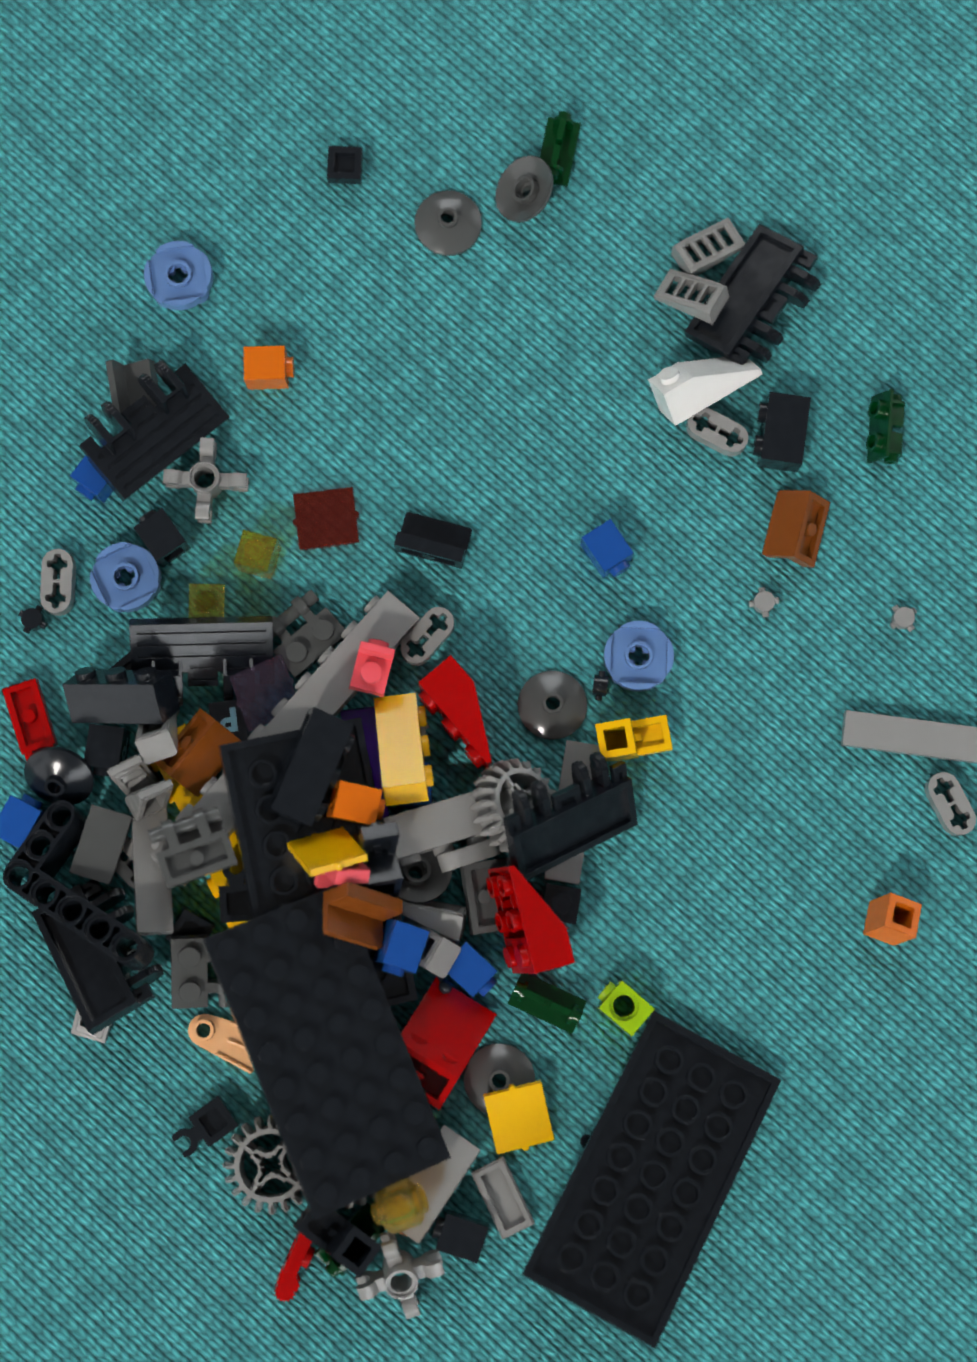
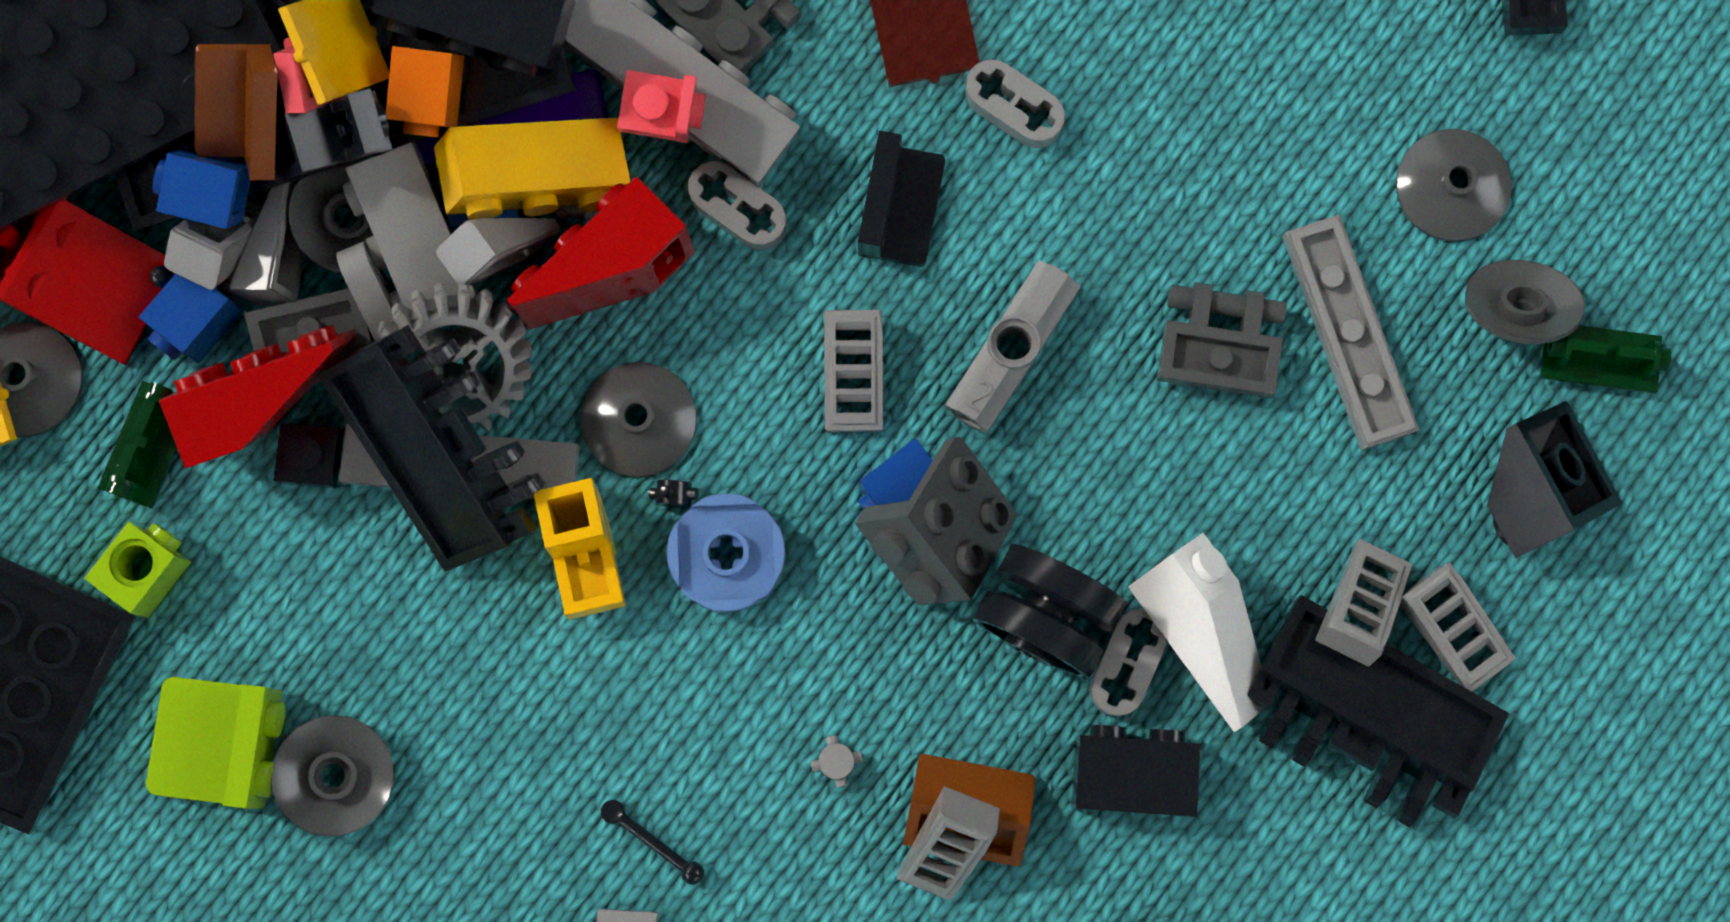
camera: 85 degrees right, 0 degrees up
(372, 463) = (1021, 92): none -> light grey beam
(450, 776) = (493, 245): none -> light grey slope
(510, 466) = (1032, 317): none -> light grey piece
(522, 561) = (853, 321): none -> light grey slope
(532, 289) = (1350, 332): none -> light grey tile
(542, 365) = (1222, 357): none -> dark grey plate
(631, 186) = (1547, 481): none -> black slope
(644, 525) = (946, 531): none -> dark grey bracket
(691, 470) = (1053, 603): none -> black wheel
(732, 964) = (215, 742): none -> lime bracket
(763, 879) = (298, 775): none -> dark grey dish
(785, 733) = (614, 812): none -> black hinge
(802, 533) = (960, 814): none -> light grey slope

